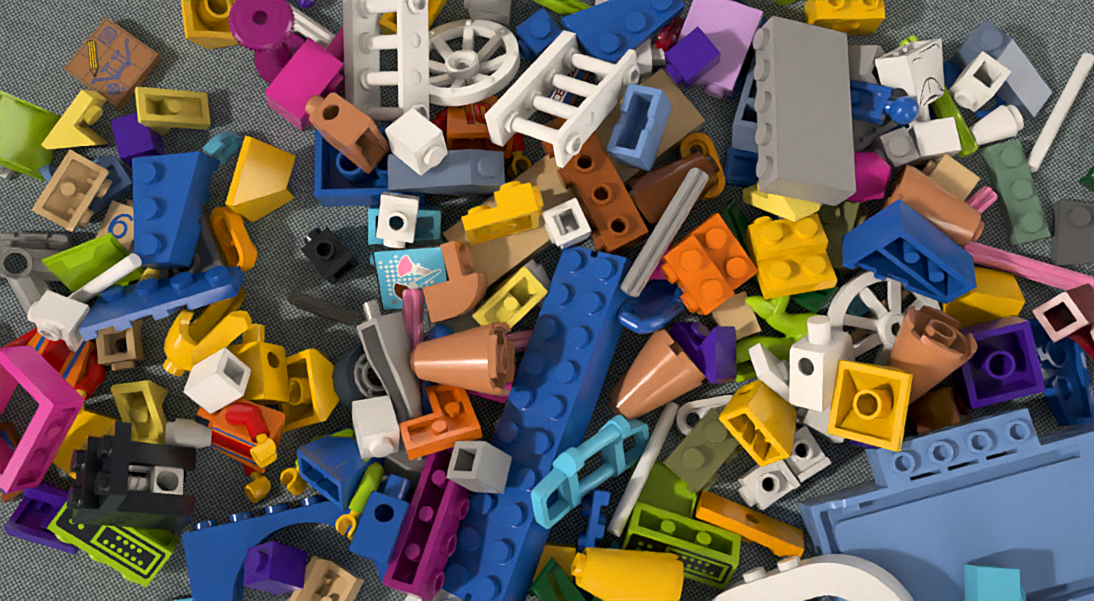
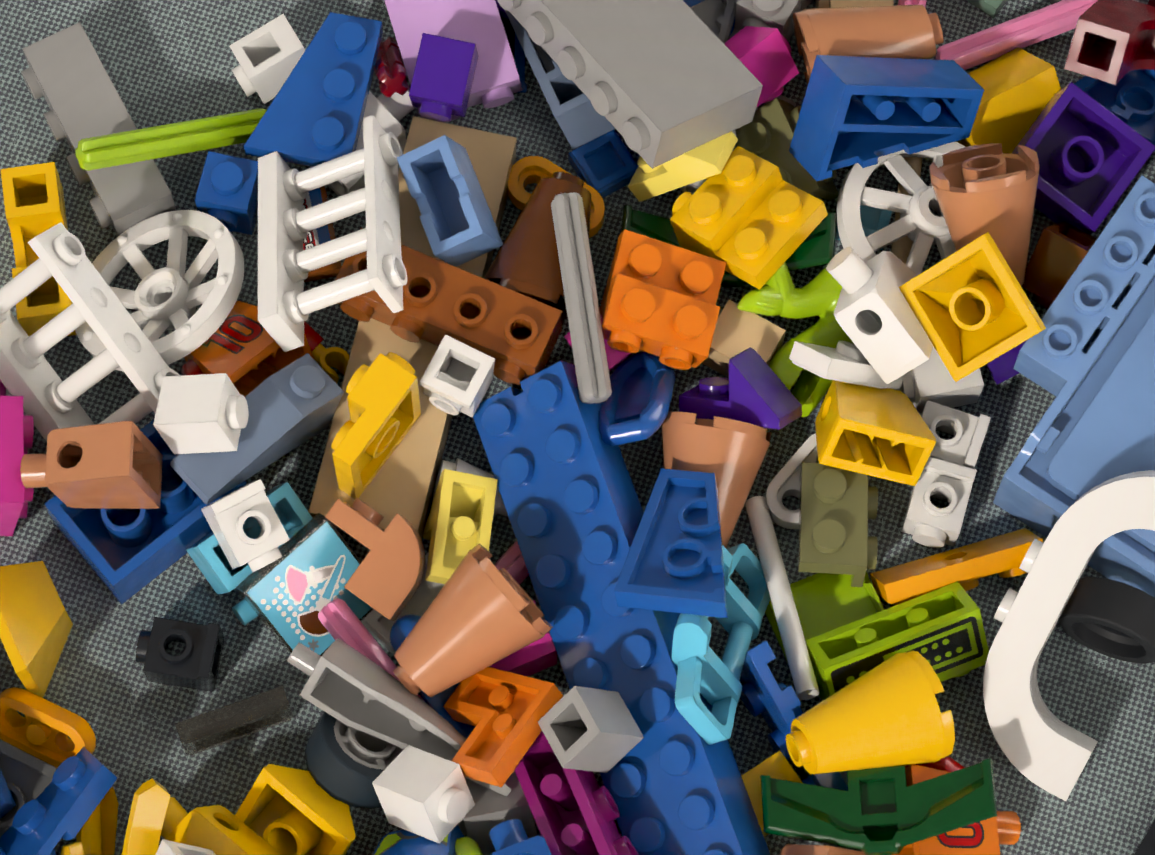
camera: 40 degrees left, 10 degrees down
(602, 409) = (677, 549): none -> blue wing

